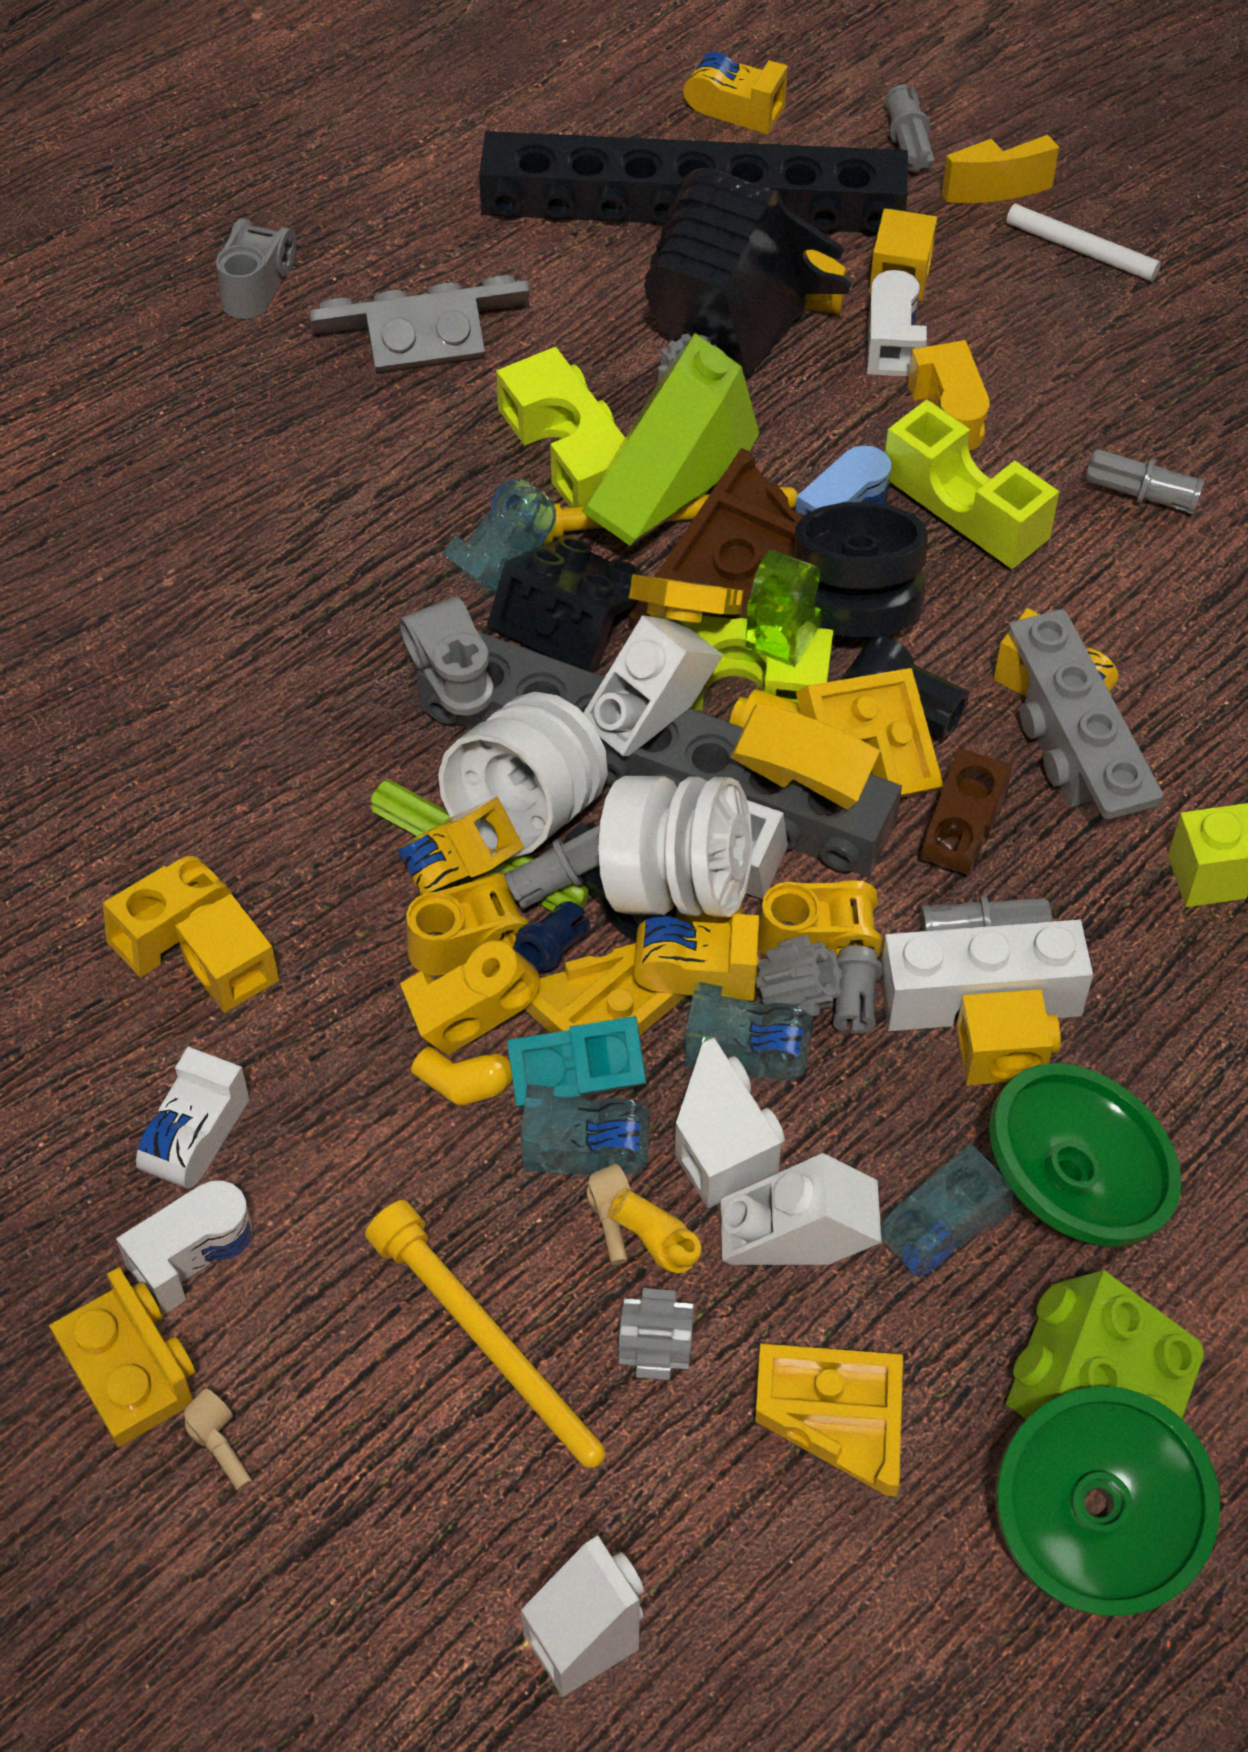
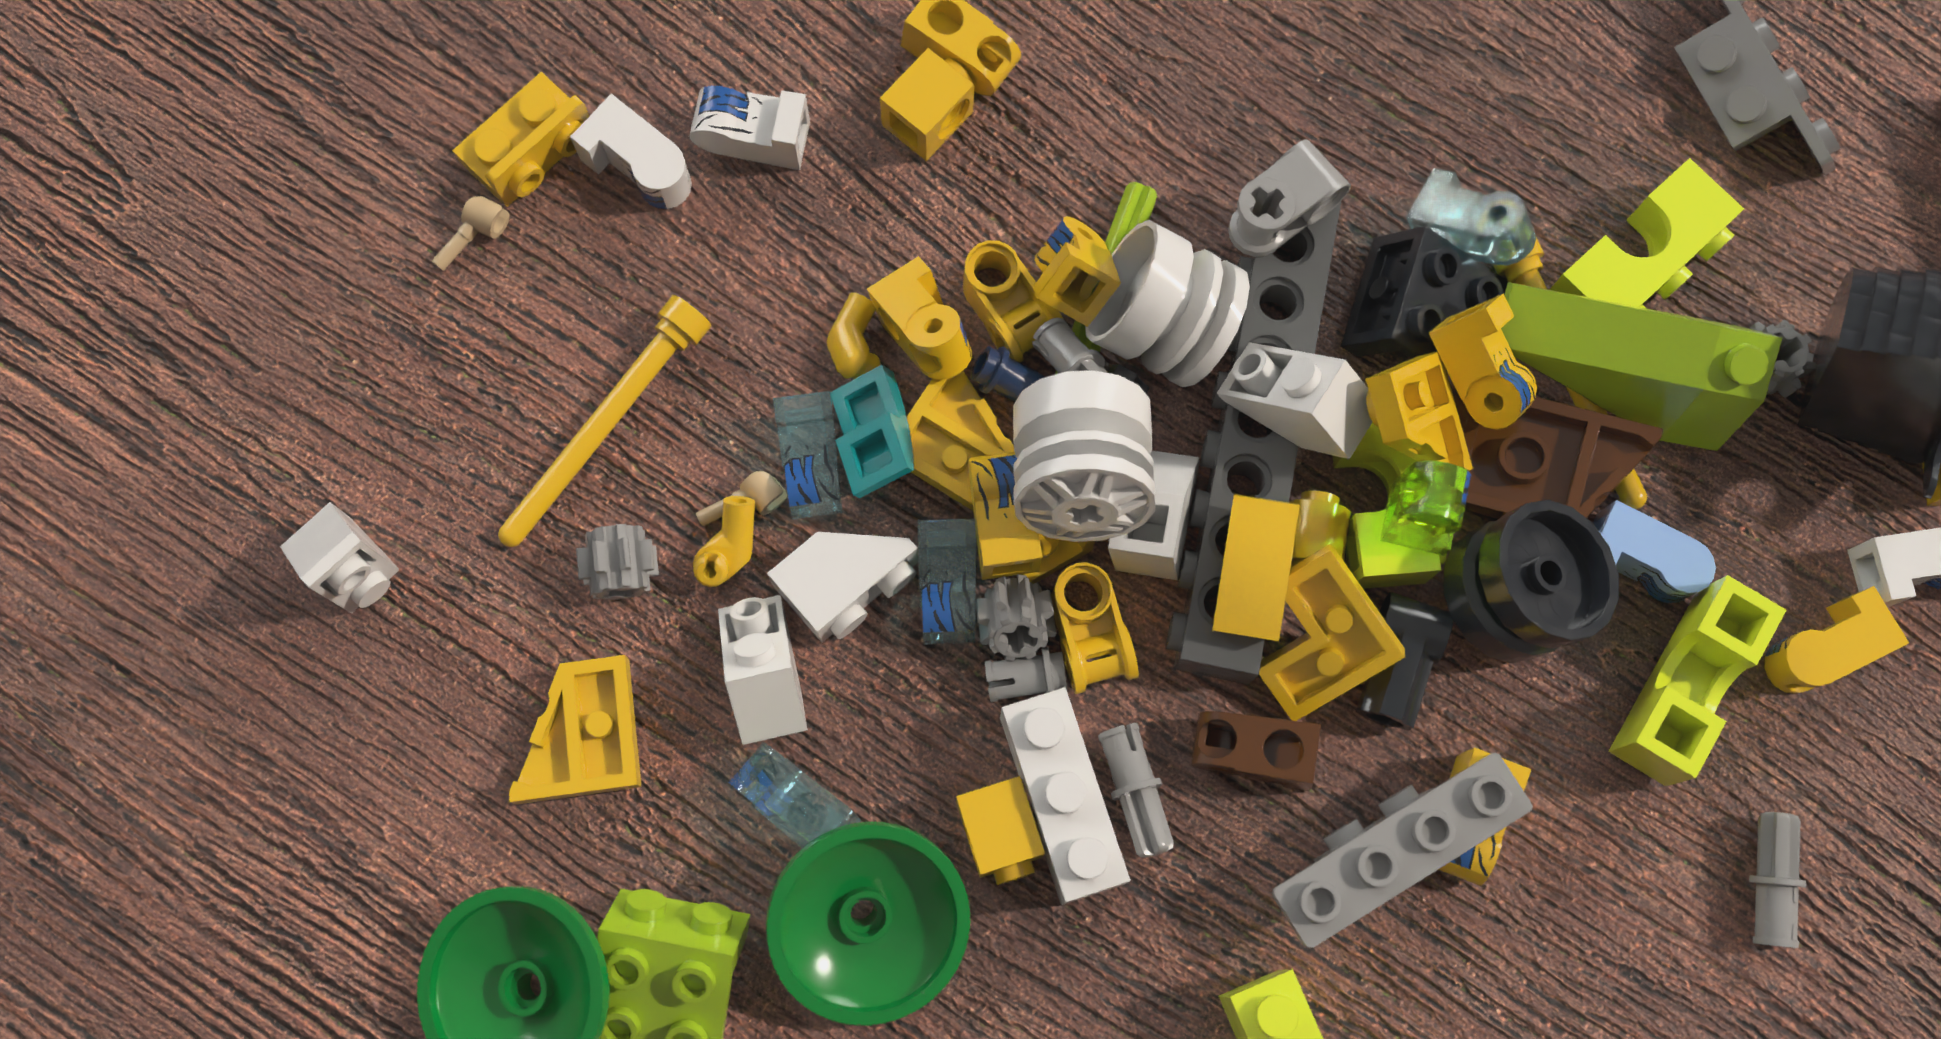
camera: 75 degrees right, 20 degrees up
(667, 549) = (1483, 365): none -> yellow leg

